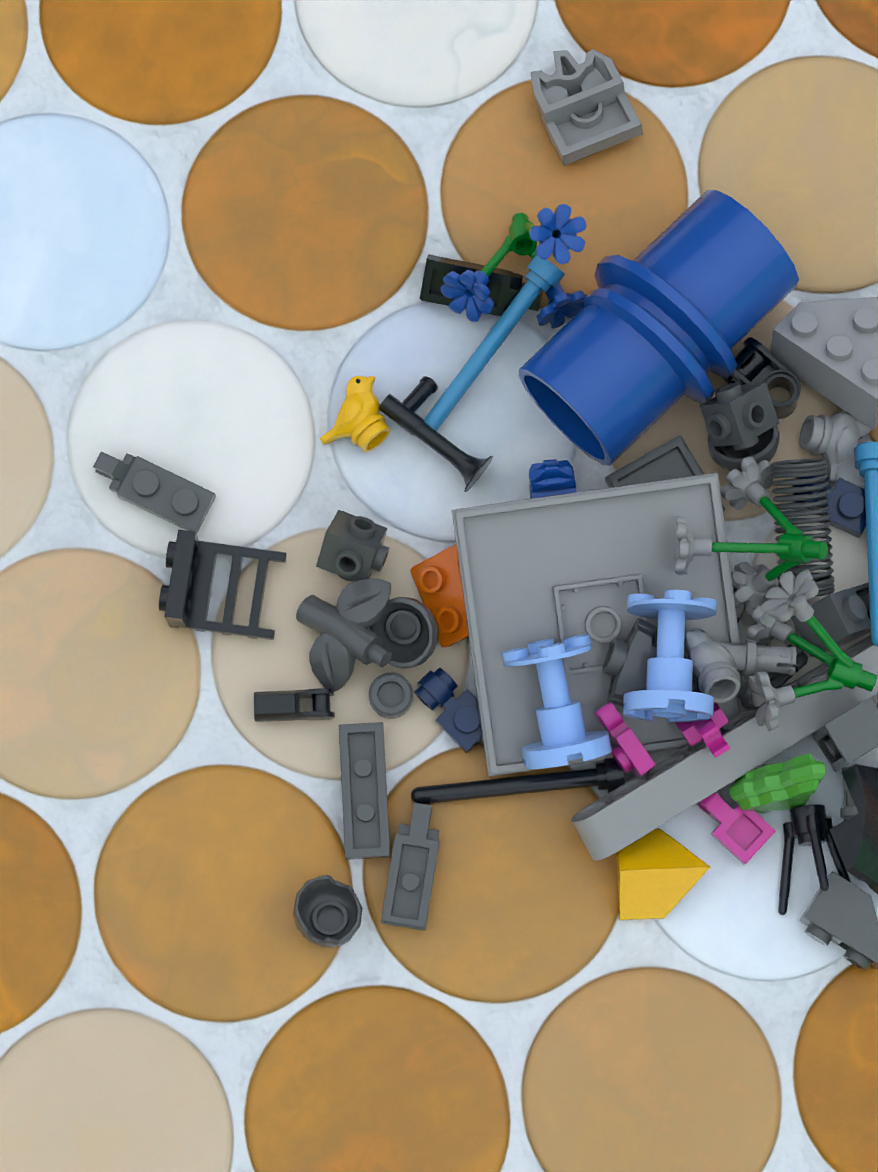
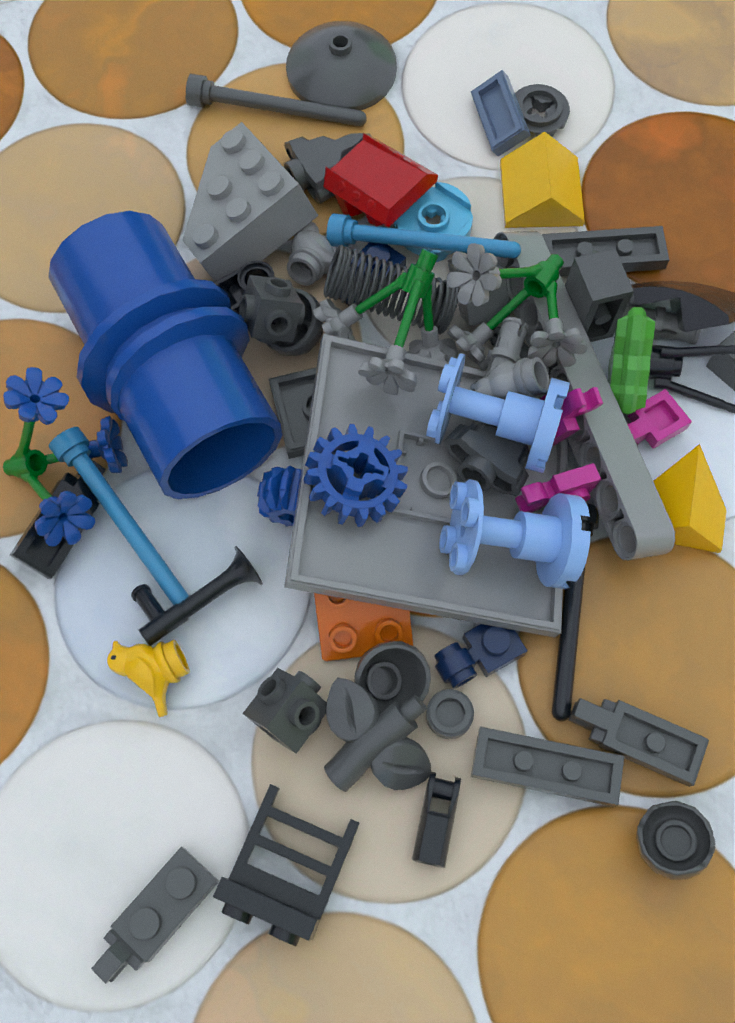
camera: 75 degrees left, 10 degrees down
(572, 564) = (334, 481): none -> blue gear

